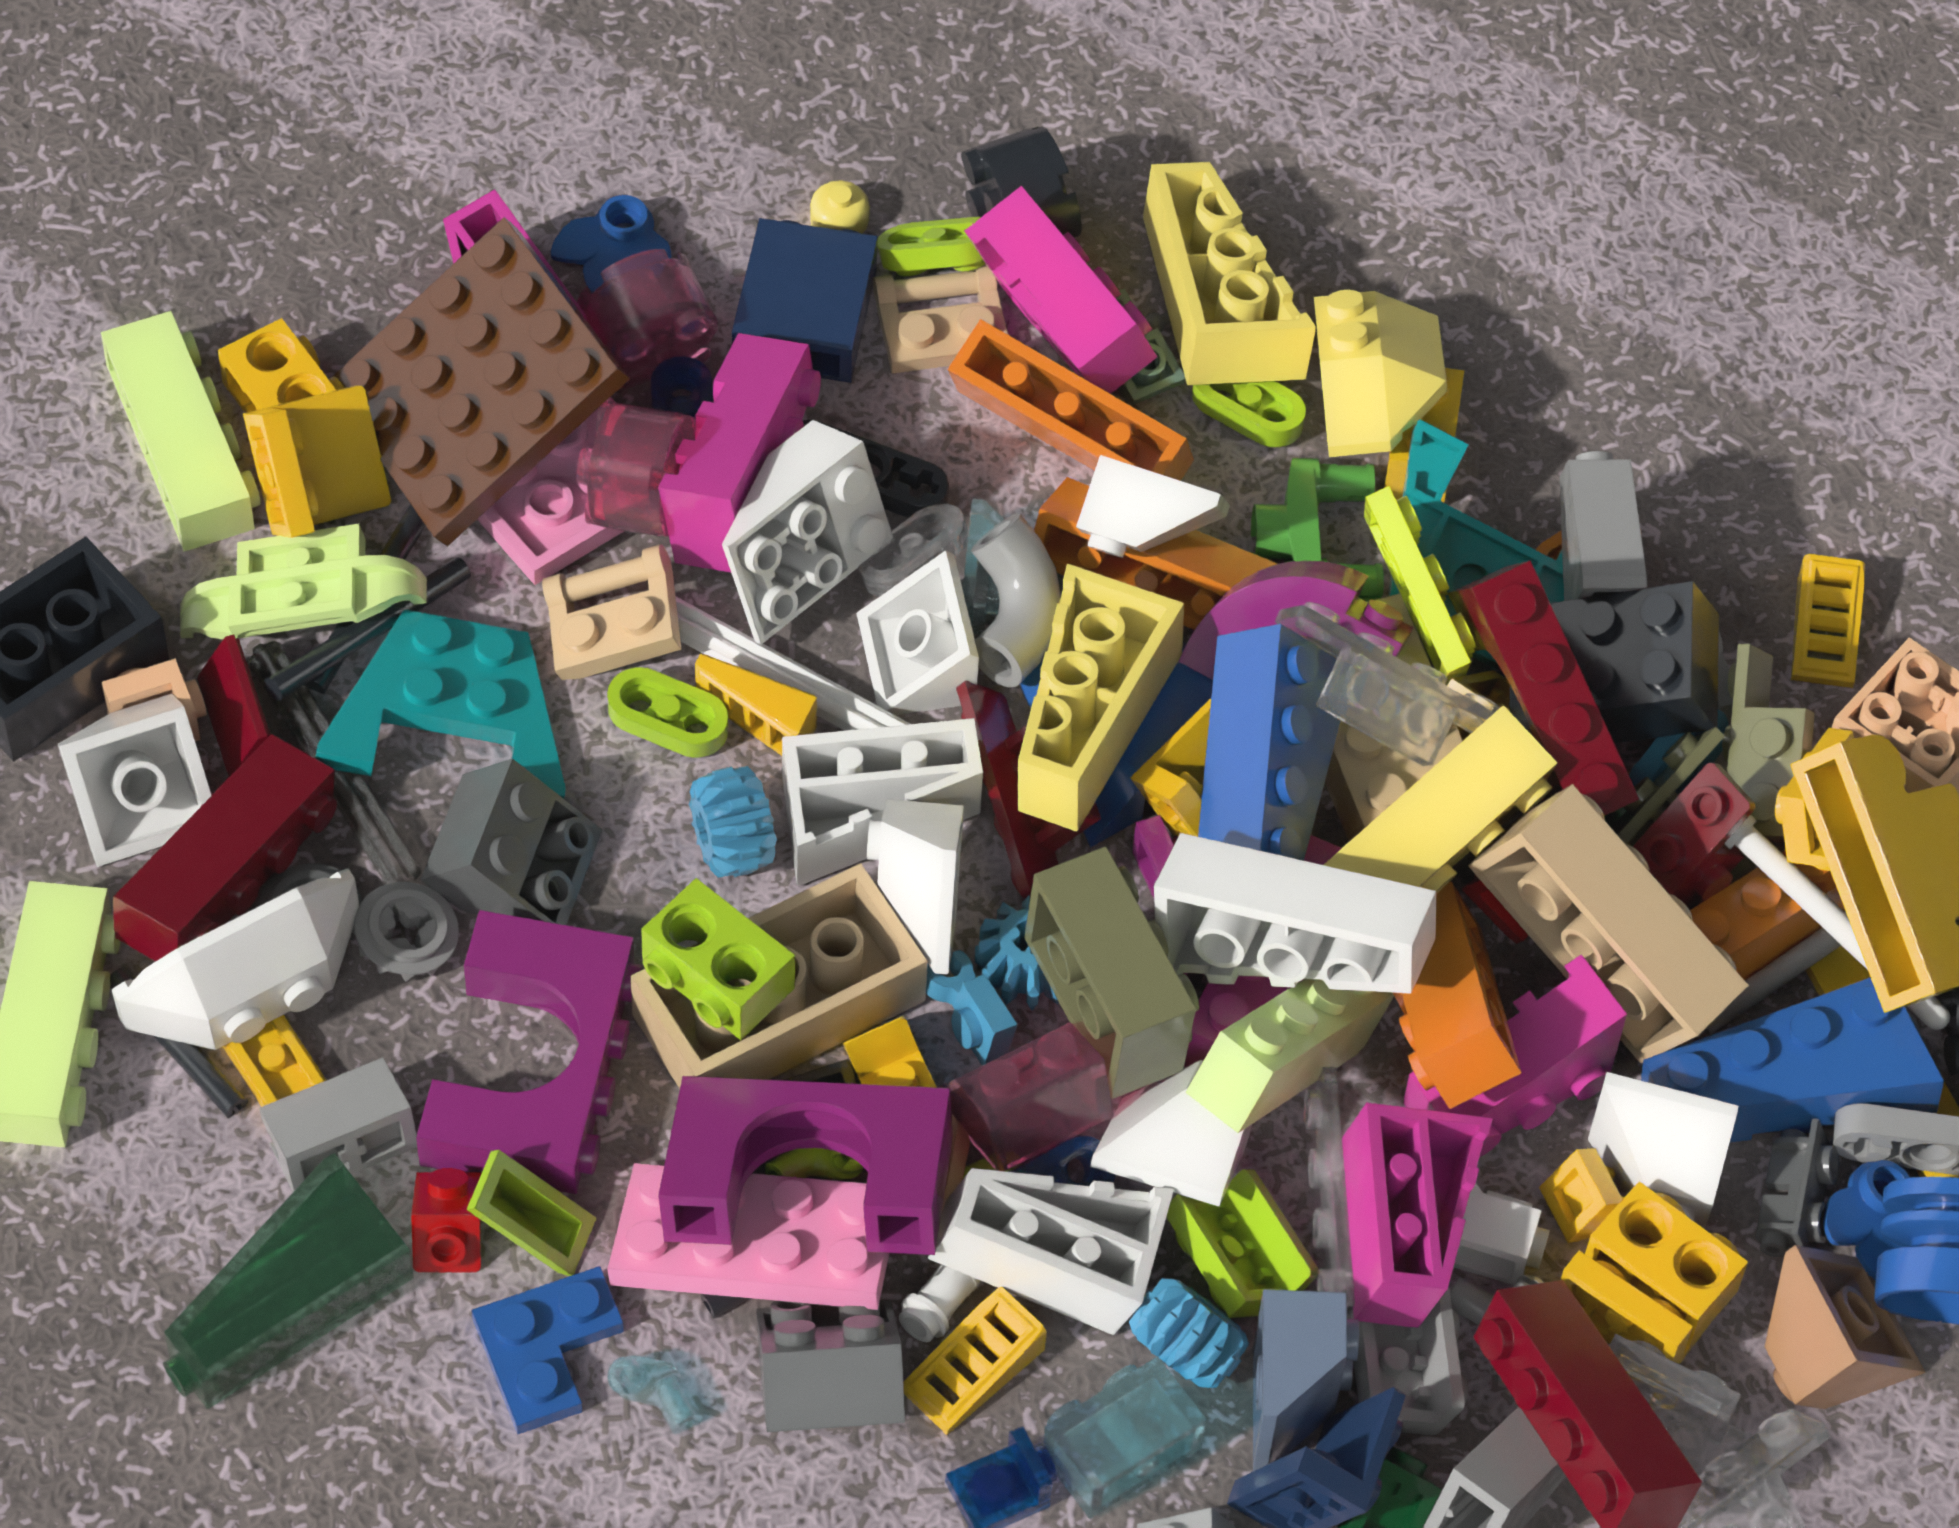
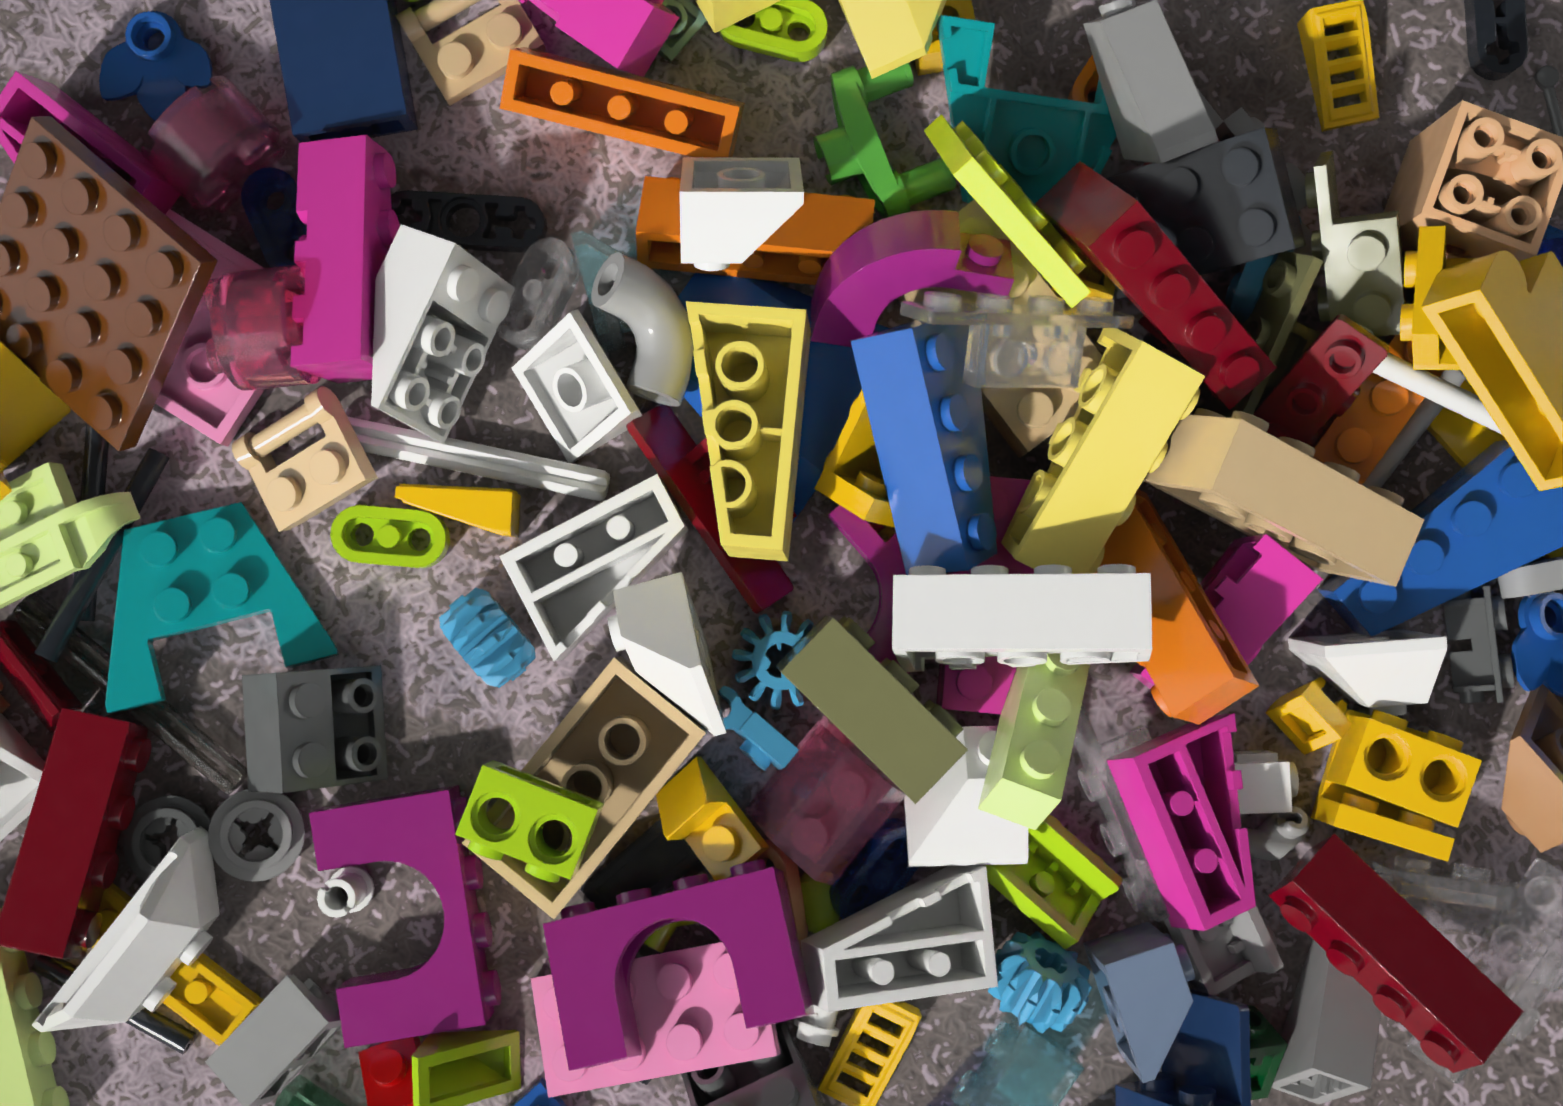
camera: 15 degrees left, 30 degrees up
(477, 1013) = (357, 885): none -> white pin

